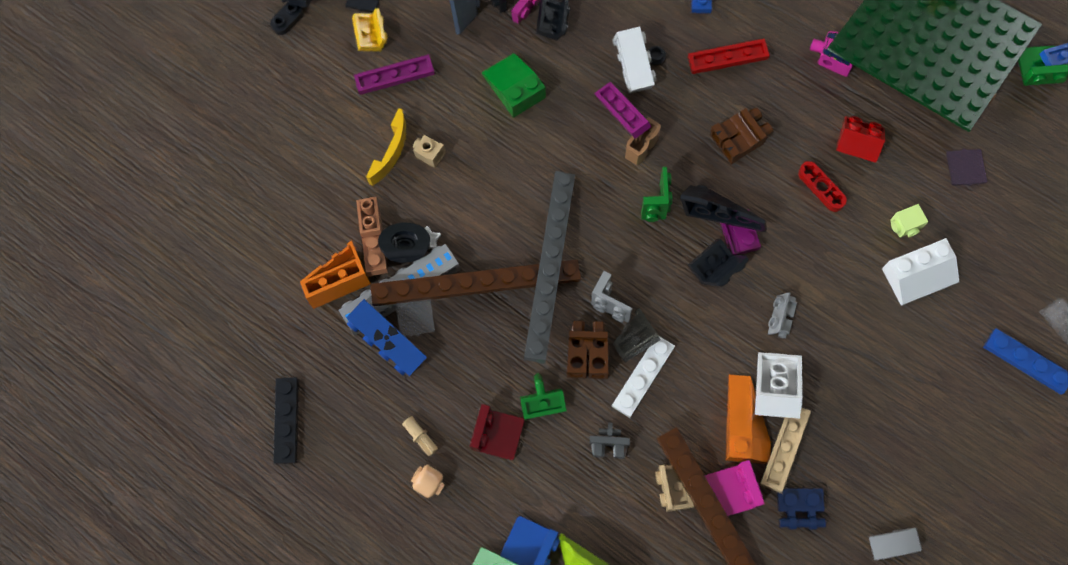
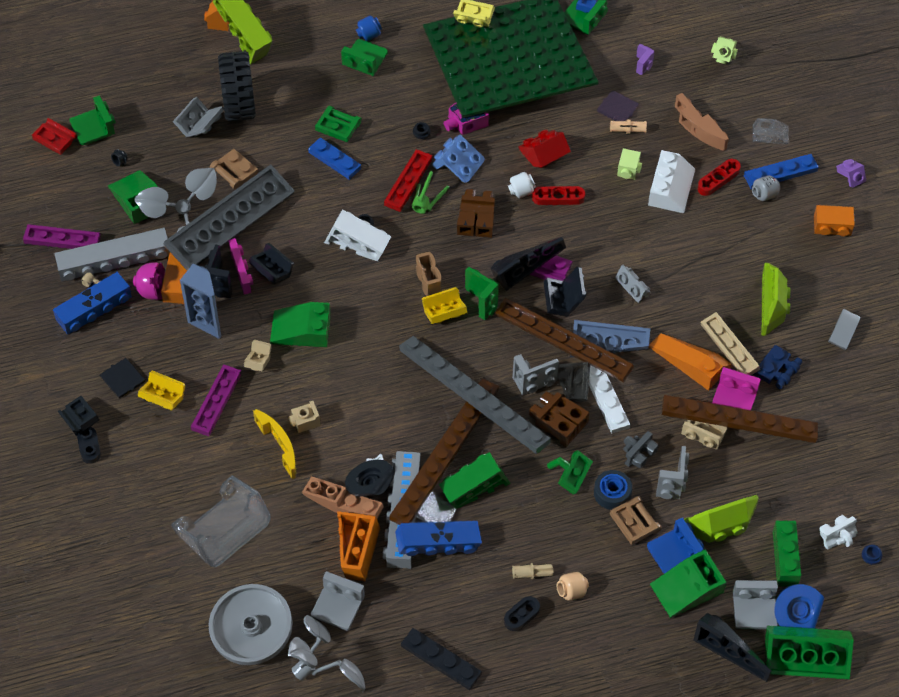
camera: 60 degrees left, 15 degrees down
(187, 313) = (308, 661): none -> light grey plant
(206, 251) = (250, 624): none -> light grey dish
(276, 302) = (338, 601): none -> light grey bracket
(281, 166) = (226, 524): none -> clear windscreen
(373, 456) = (520, 614): none -> black plate
(457, 74) = (259, 356): none -> tan bracket
(468, 326) = (473, 480): none -> green wedge
(496, 433) = (572, 517): dark red bracket -> none
(529, 485) = (630, 523): none -> medium nougat plate
(549, 436) = (615, 480): none -> wheel
(587, 497) = (671, 482): none -> light grey bracket
(622, 110) = (394, 267): magenta plate -> none
(623, 177) = (443, 305): none -> yellow bracket
(668, 301) = (564, 340): none -> reddish brown plate
(700, 329) = (613, 337): none -> sand blue wing
(714, 83) = (421, 202): none -> bright green plant
(779, 385) = (683, 317): white slope -> none
(786, 79) = (459, 158): none -> medium blue bracket
(789, 24) = (421, 130): none -> black plate
(803, 148) = (521, 185): none -> white head
(872, 454) = (773, 298): none -> lime wedge
(942, 180) = (640, 126): none -> light nougat pin
(976, 304) = (720, 170): none -> red beam
(993, 360) = (766, 188): none -> light grey head
(1010, 254) = (701, 127): none -> nougat slope
(1013, 450) = (833, 220): none -> orange brick
(1041, 153) = (646, 59): none -> medium lavender bracket

